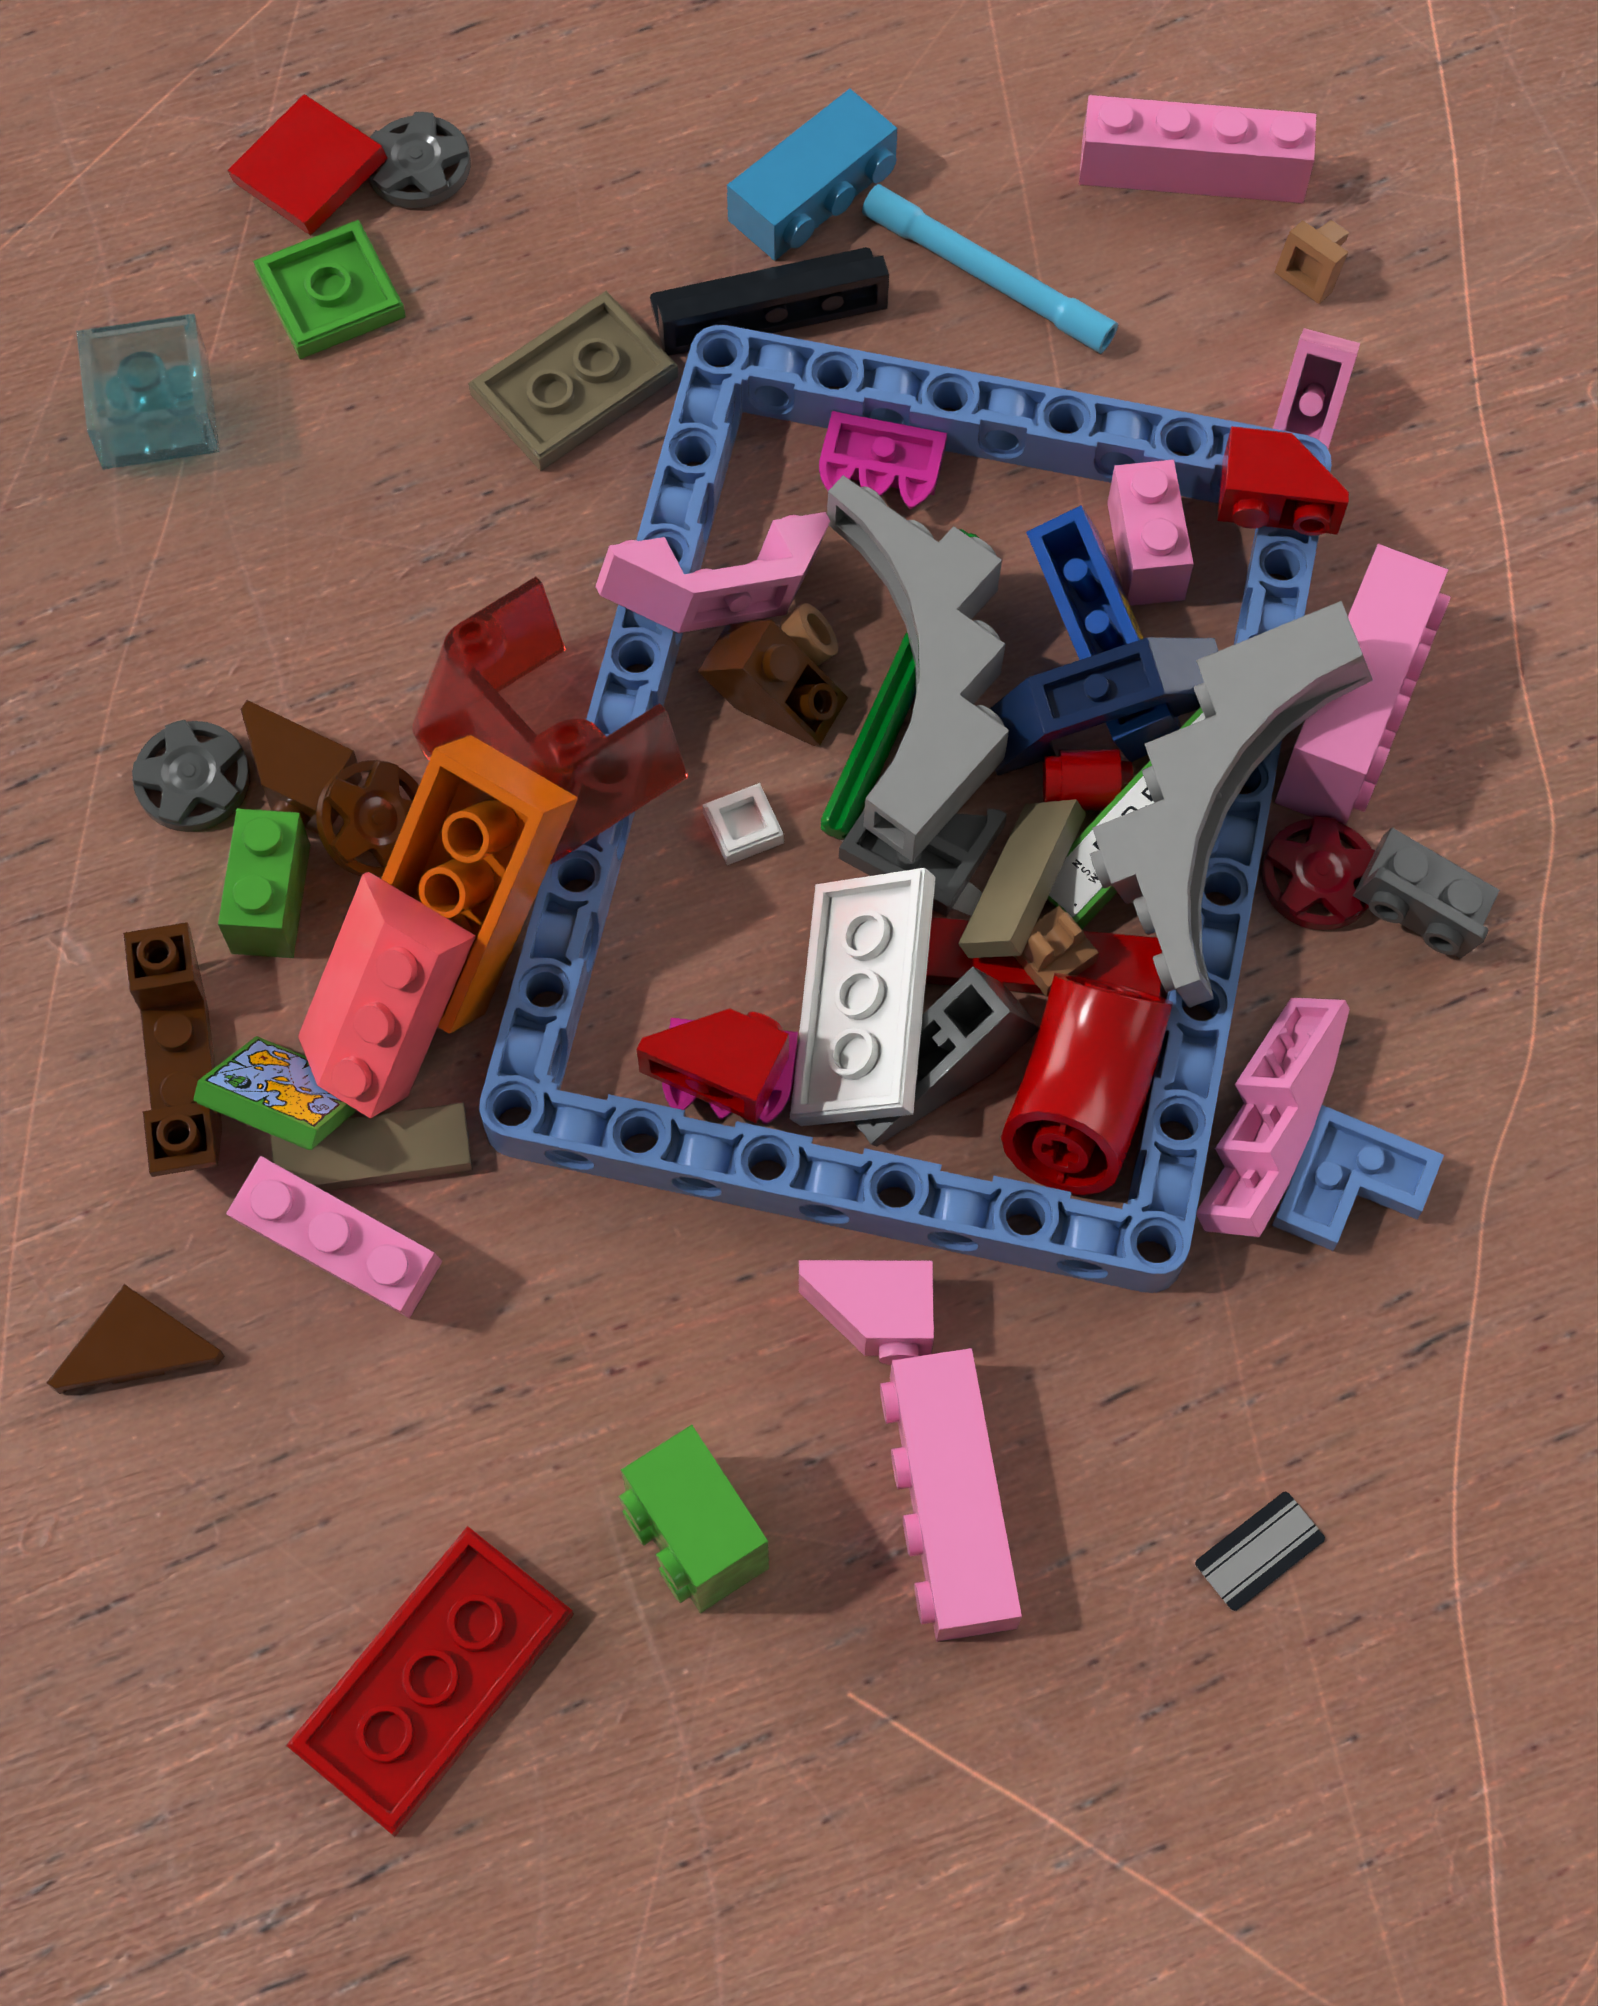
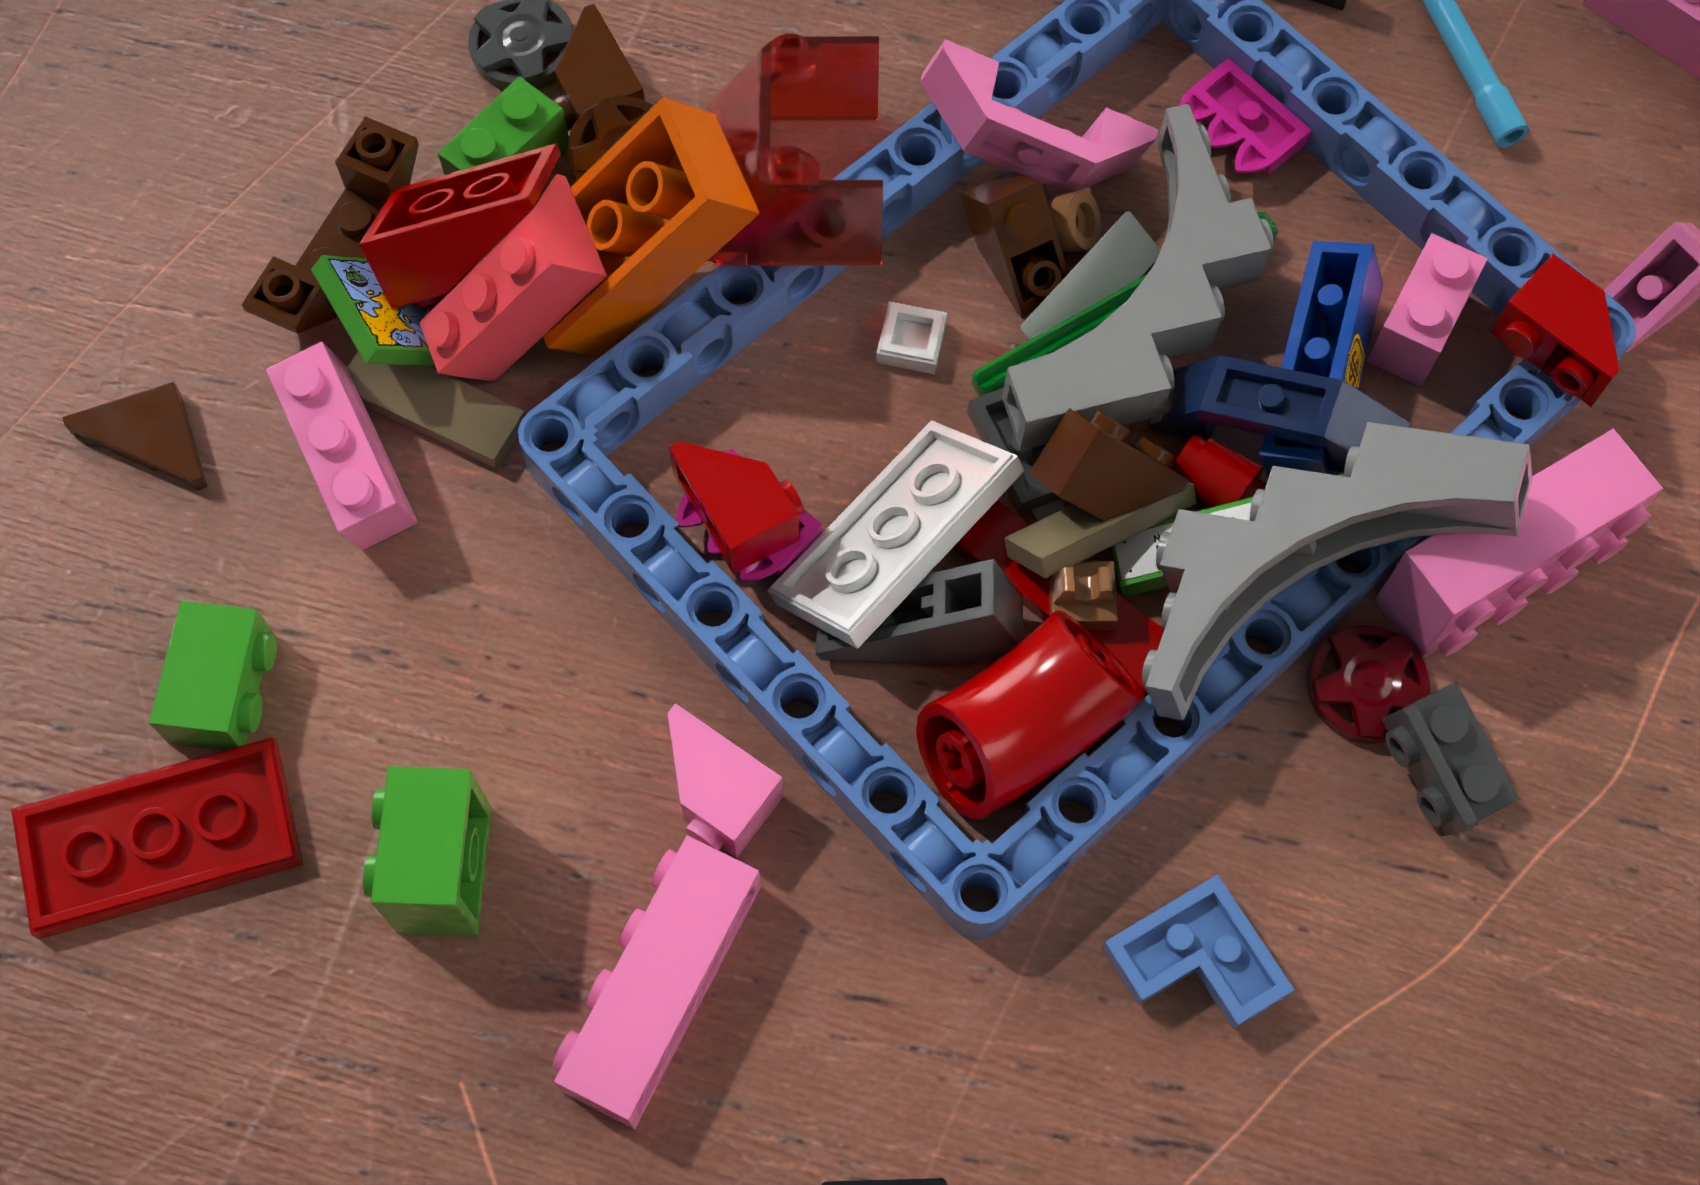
camera: 35 degrees right, 0 degrees up
(296, 972) = (447, 224): none -> red slope
(376, 1509) = (213, 676): none -> bright green brick
(862, 672) = (1110, 265): none -> white sticker
(1000, 834) = (1101, 470): none -> reddish brown slope
(1280, 1108) = (1185, 848): bright pink slope -> none

